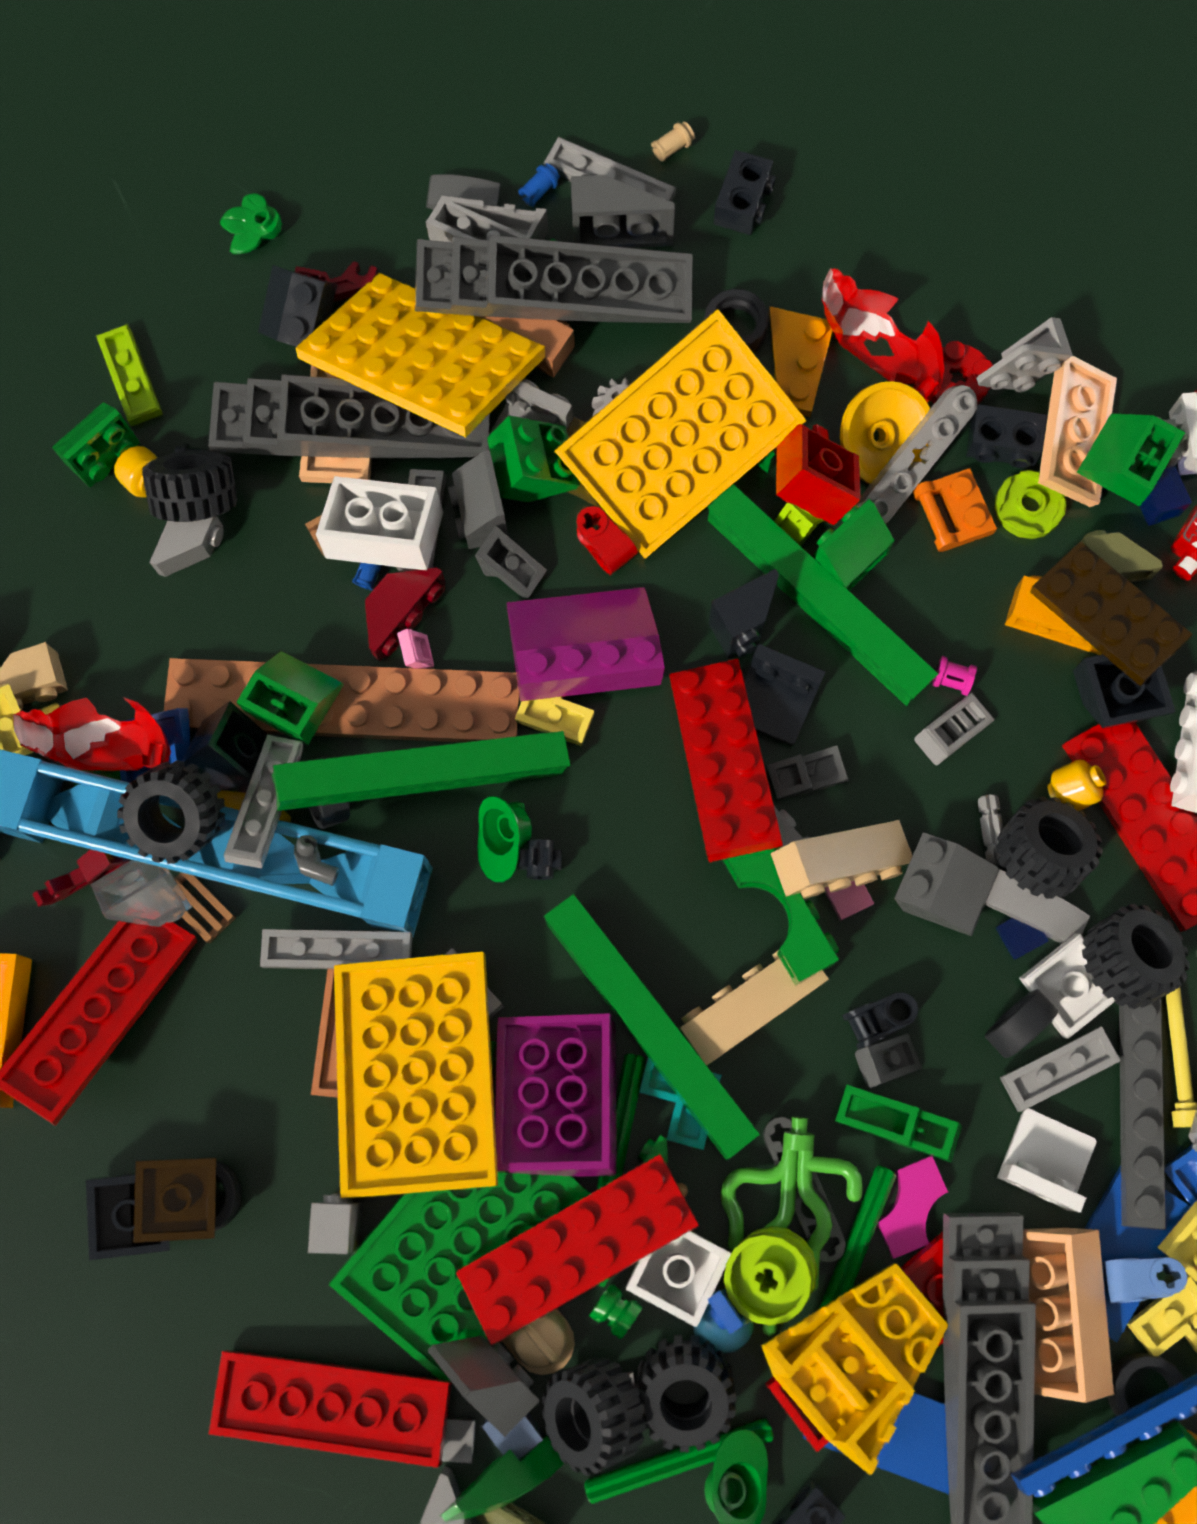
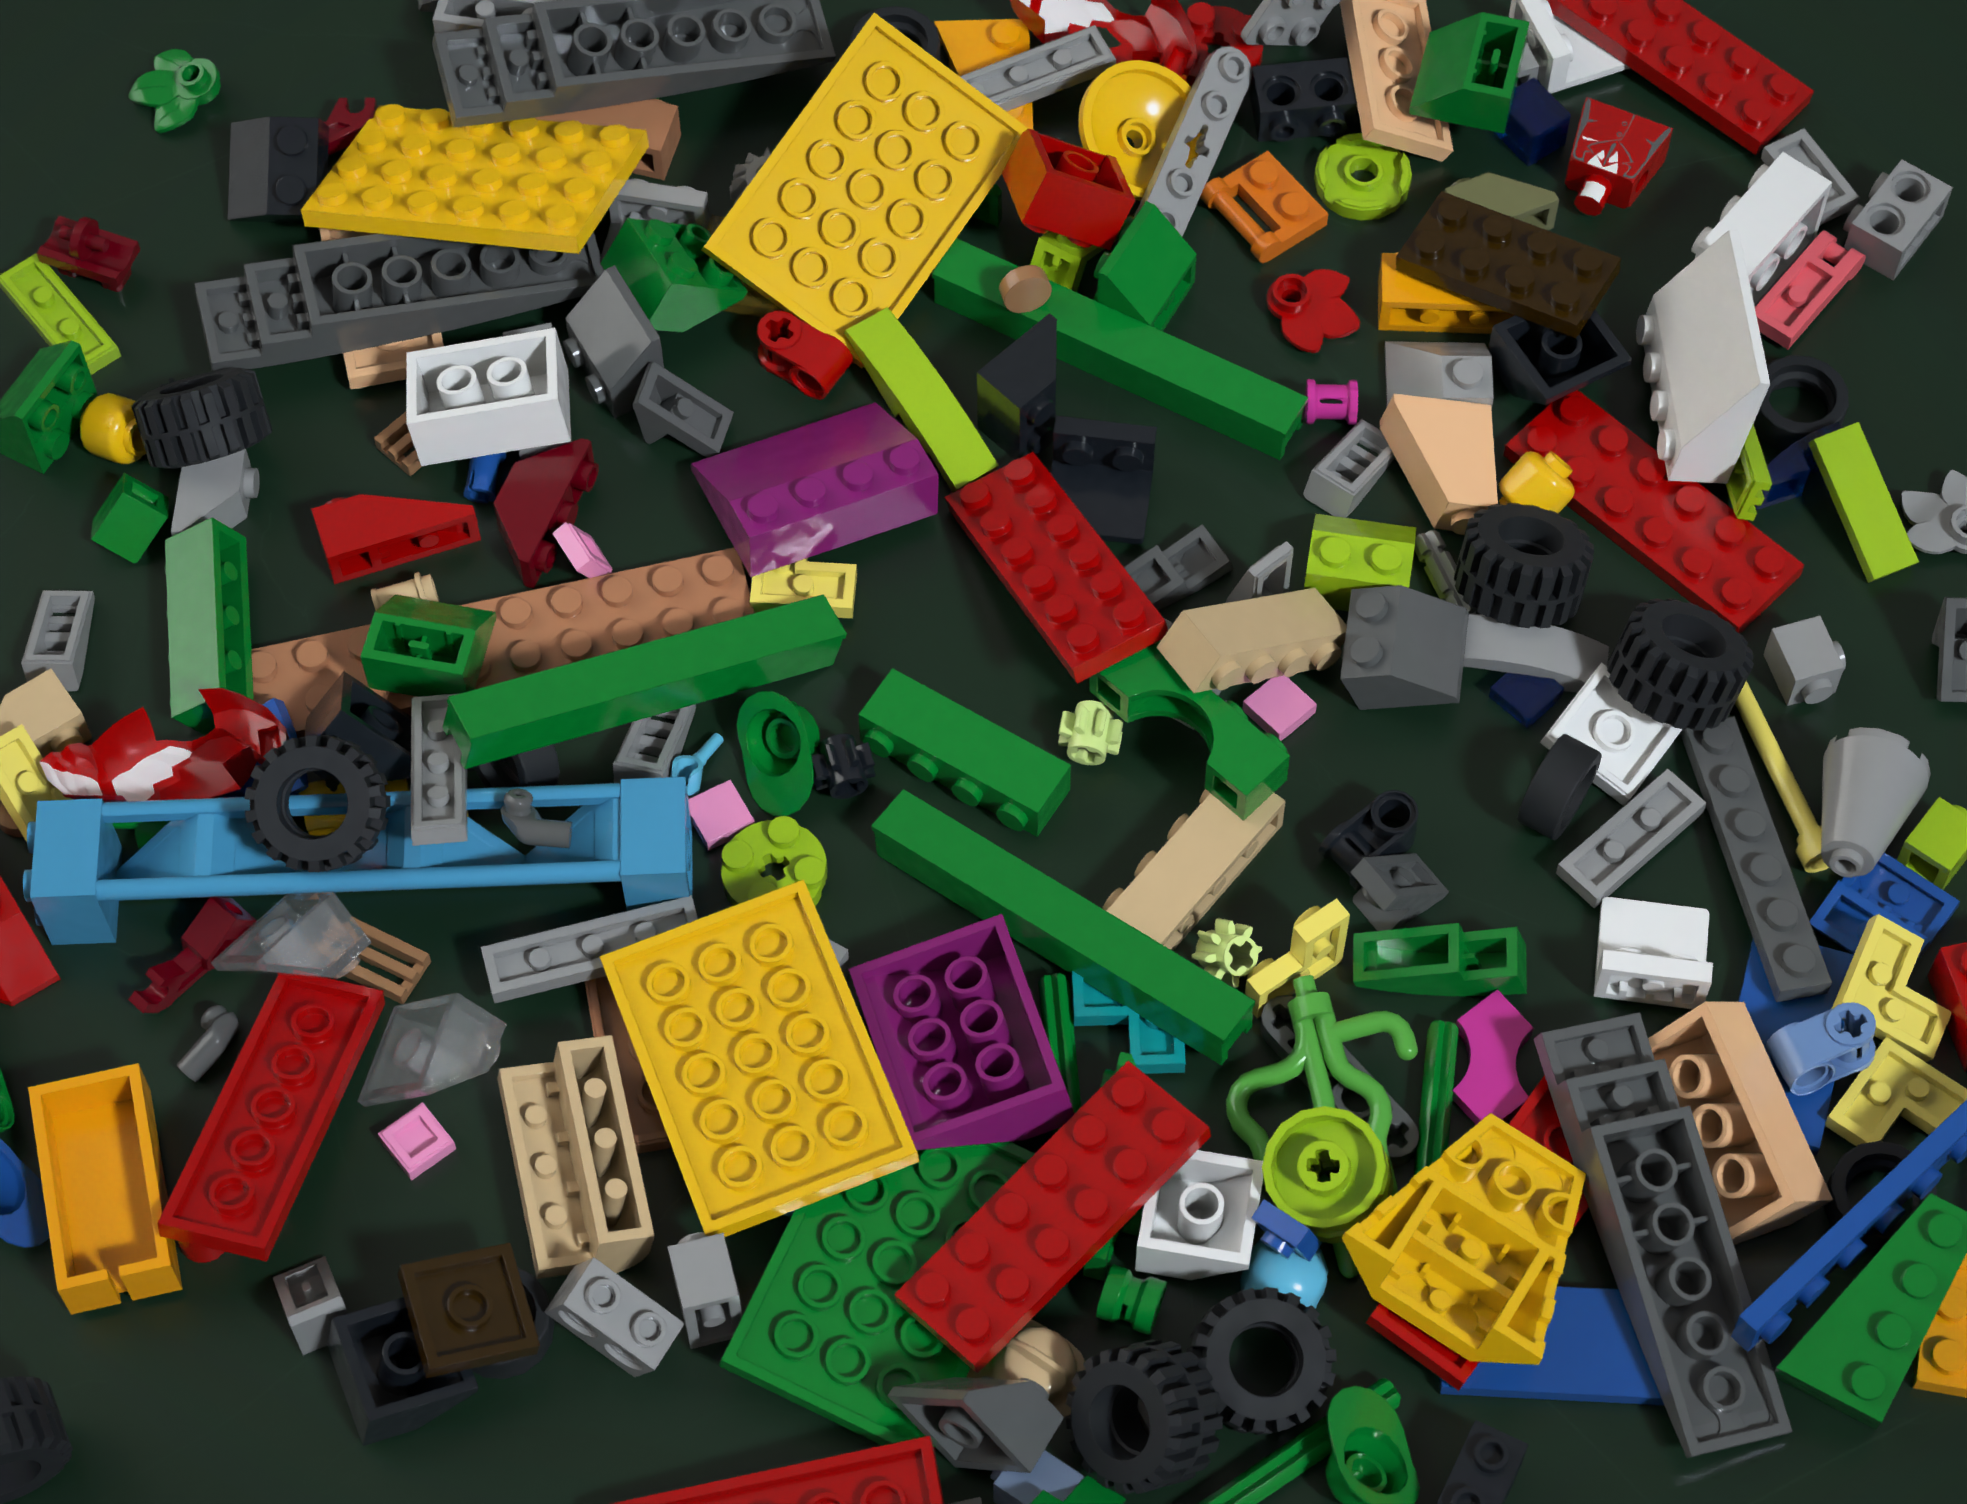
camera: 20 degrees left, 15 degrees down
(63, 635) = (66, 664): none -> light grey slope
(88, 929) = (219, 1032): none -> dark grey arm
(88, 1145) = (310, 1302): none -> light grey slope
(131, 540) = (129, 518): none -> green panel
(157, 636) = (207, 619): none -> green brick
(158, 335) = (89, 252): none -> dark red hips
(189, 1046) = (416, 1141): none -> bright pink tile
(212, 993) = (431, 1049): none -> clear slope
(270, 1226) = (614, 1317): none -> light grey brick
(279, 595) = (382, 532): none -> red slope
(279, 1102) = (576, 1159): none -> tan brick
(297, 647) = (419, 587): none -> tan pin
(409, 828) = (632, 765): none -> light grey slope
(443, 827) = (692, 766): none -> medium azure hand
(451, 867) = (719, 814): none -> bright pink tile
(457, 908) = (770, 842): none -> lime plate
(624, 872) = (964, 753): none -> green brick
(674, 596) = (921, 399): none -> lime slope
(713, 883) = (1090, 732): none -> yellowish green gear
(755, 1076) = (1227, 951): none -> yellowish green gear
(766, 540) = (1025, 289): none -> medium nougat tile
(812, 1093) = (1314, 949): none -> light yellow plate
(826, 367) = (1043, 69): none -> light grey tile
(862, 807) = (1266, 576): none -> light grey slope
(937, 802) = (1357, 556): none -> lime slope
(968, 601) = (1317, 310): none -> red plate
(1021, 745) = (1444, 455): none -> light nougat slope
(1033, 681) = (1439, 371): none -> light grey slope

